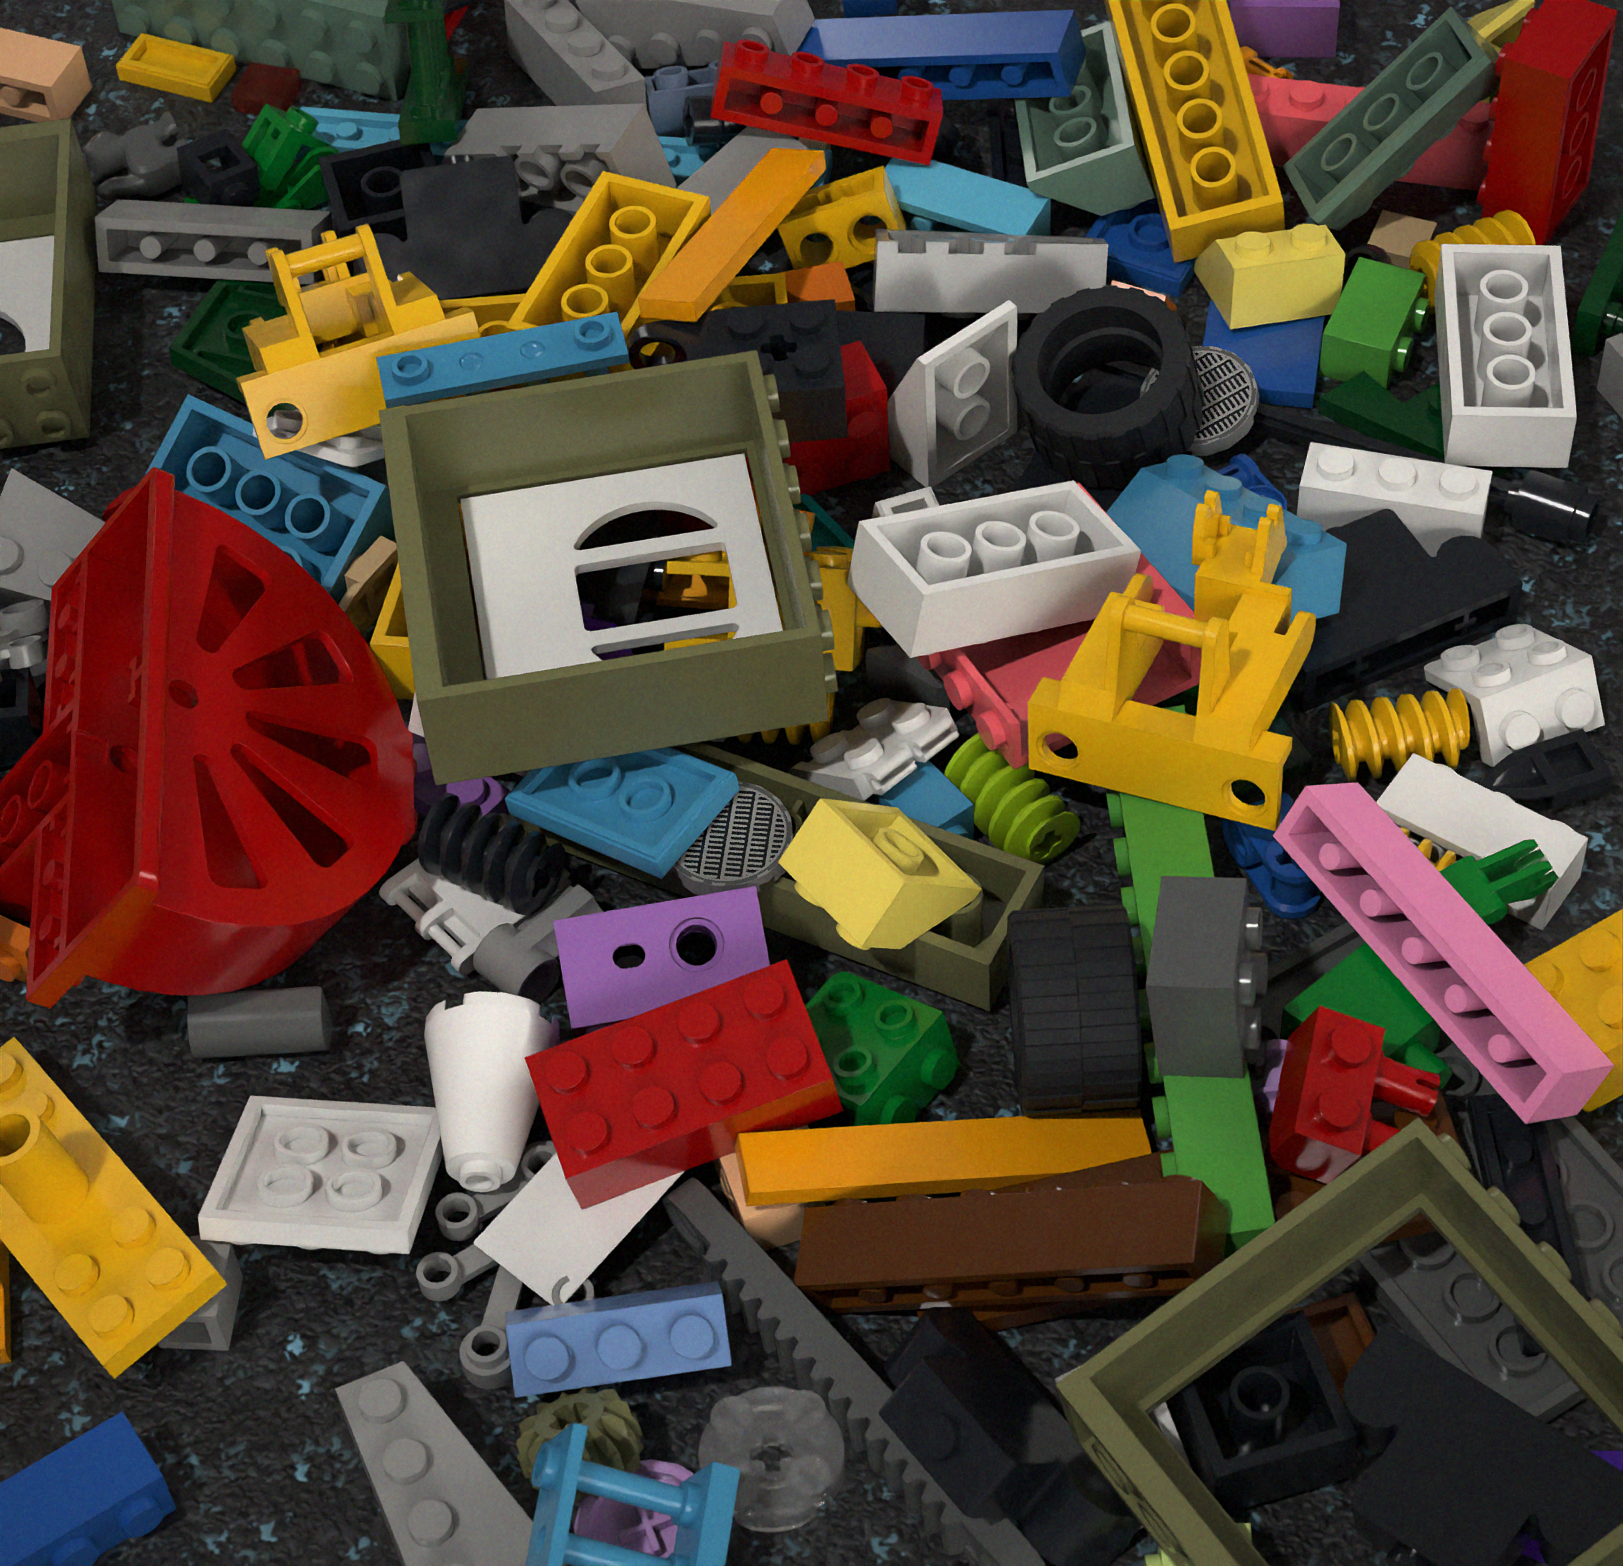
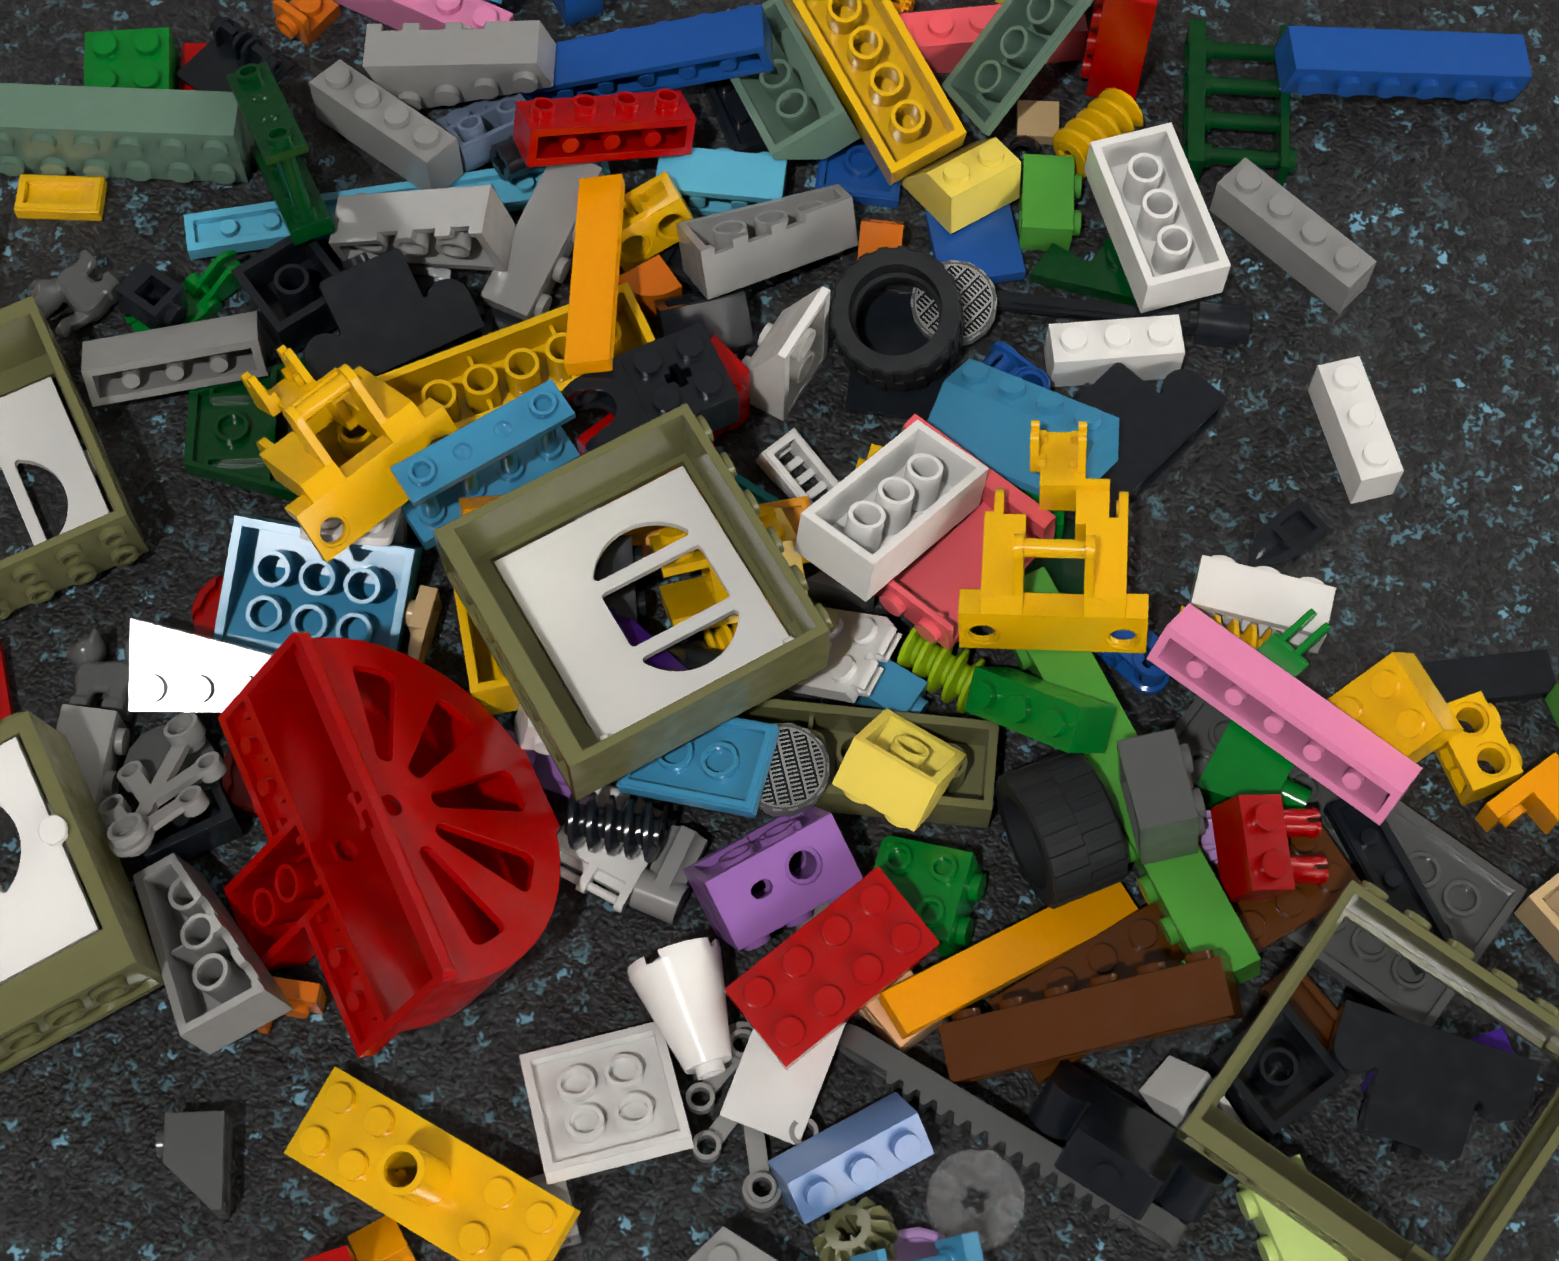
camera: 25 degrees left, 15 degrees up
(259, 1022) = (505, 999): dark grey brick -> none
(266, 85) = (143, 201): clear red tile -> none
(277, 139) = (186, 256): green bracket -> none
(611, 256) = (516, 325): yellow brick -> none
(1094, 851) = (1040, 709): none -> green brick
(1399, 732) = (1182, 535): yellow piece -> none
(1521, 688) = (1246, 473): white bracket -> none

